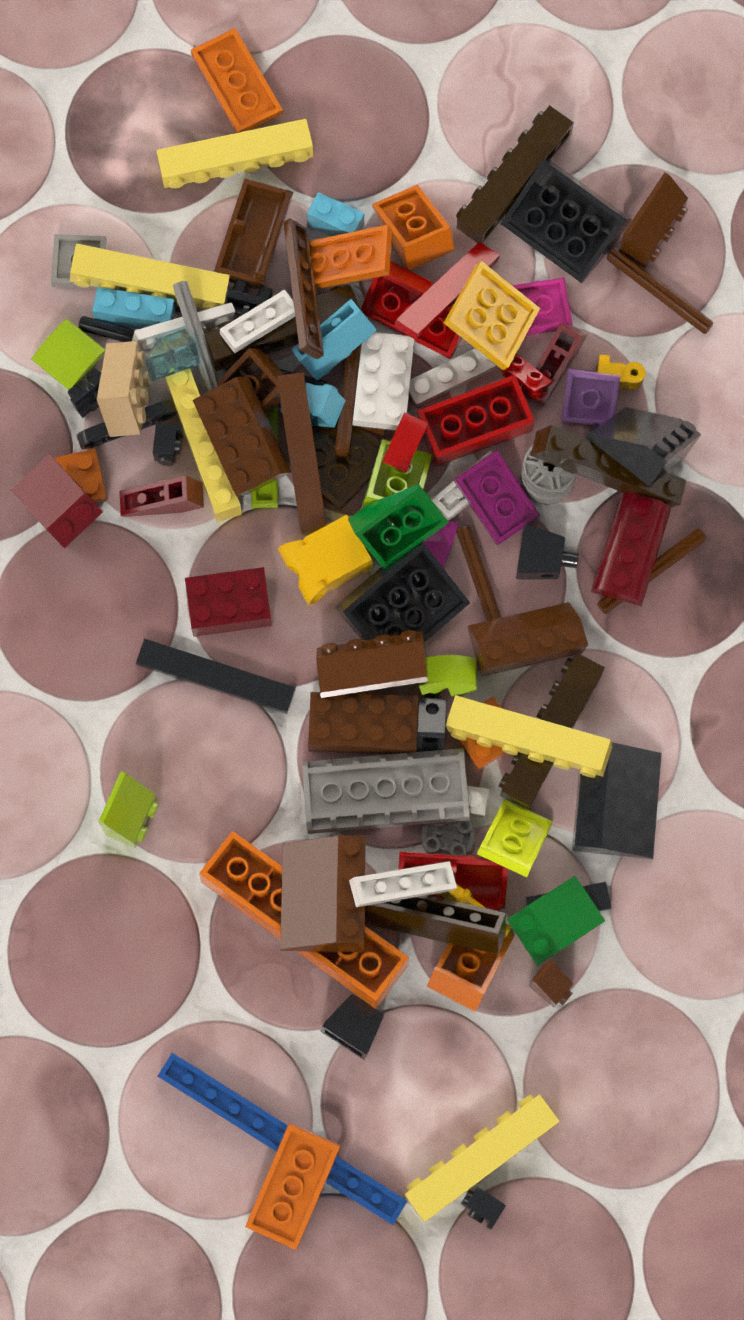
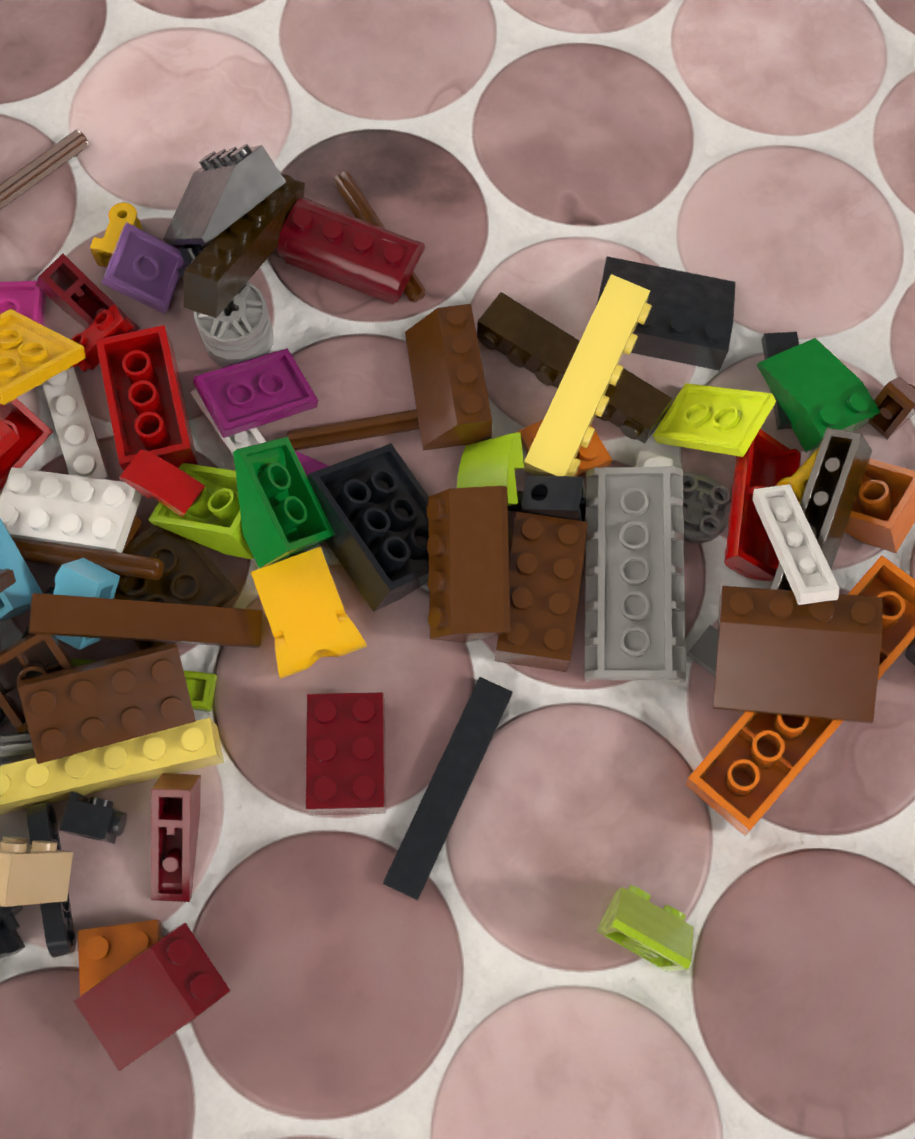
camera: 85 degrees left, 5 degrees down
(543, 555) = (339, 350): black torso -> none

